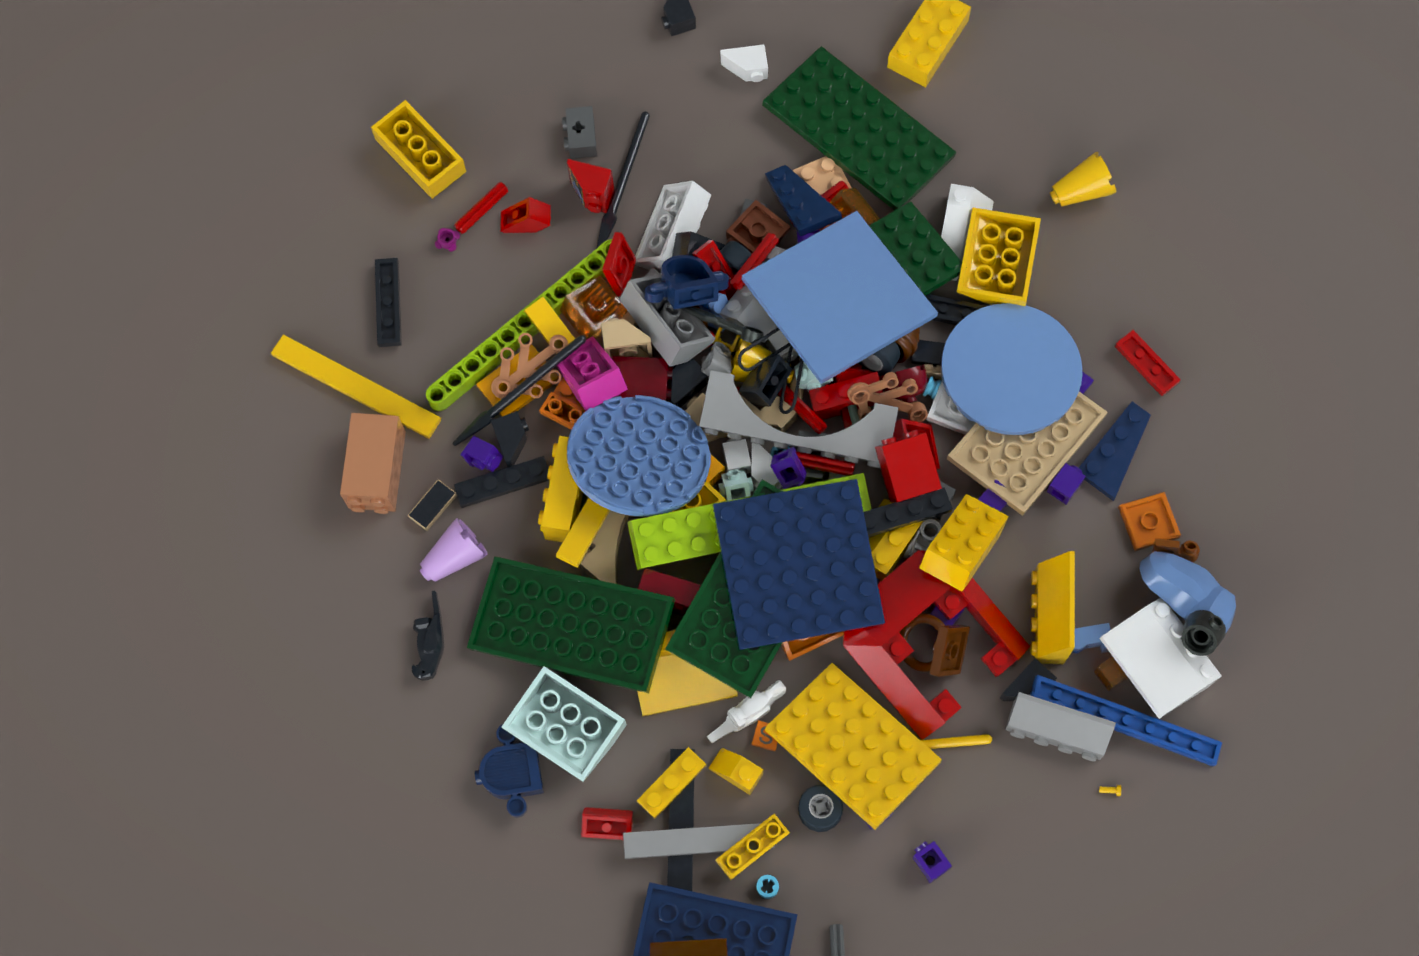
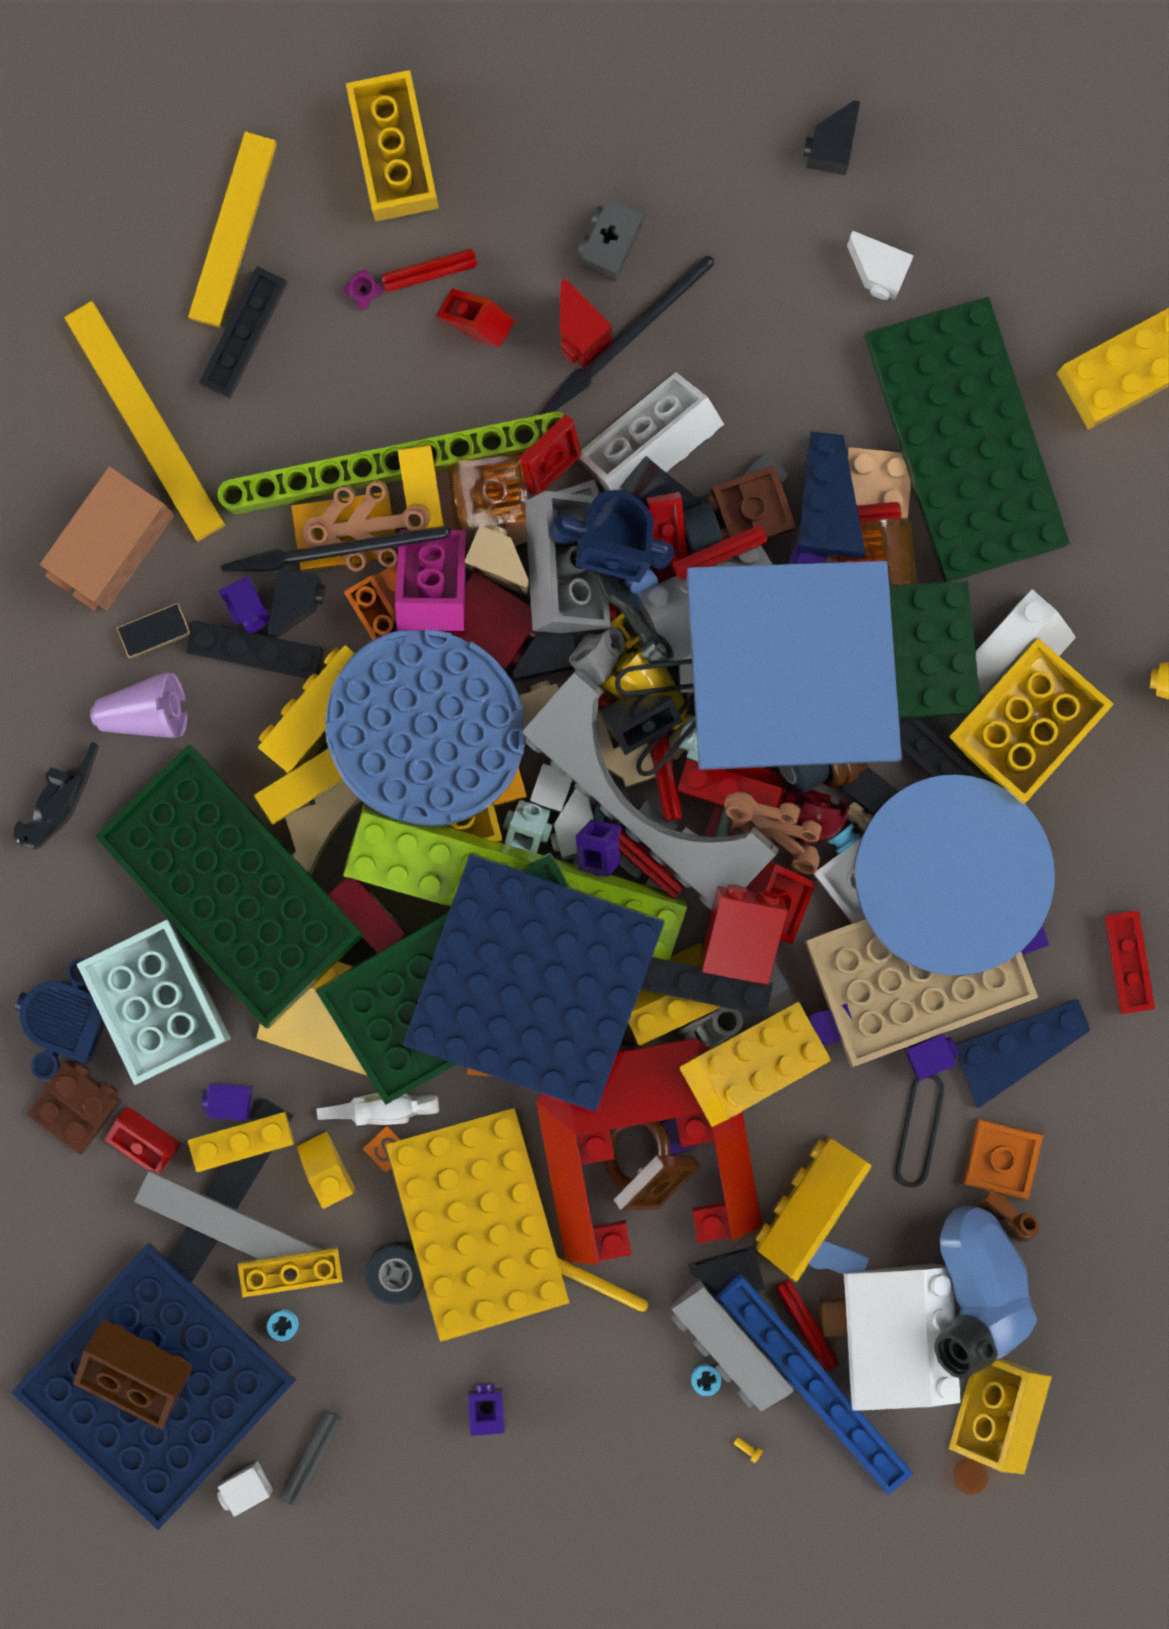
camera: 30 degrees right, 15 degrees up
(347, 250) = (232, 229): none -> yellow tile
(550, 824) = (75, 1106): none -> copper plate
(647, 762) = (228, 1101): none -> dark purple brick
(1049, 760) = (697, 1374): none -> medium azure bush
(1094, 688) = (806, 1325): none -> red axle
(1097, 530) = (933, 1133): none -> black piece
(1250, 672) = (1000, 1416): none -> yellow slope
(1258, 724) = (970, 1476): none -> clear orange tile

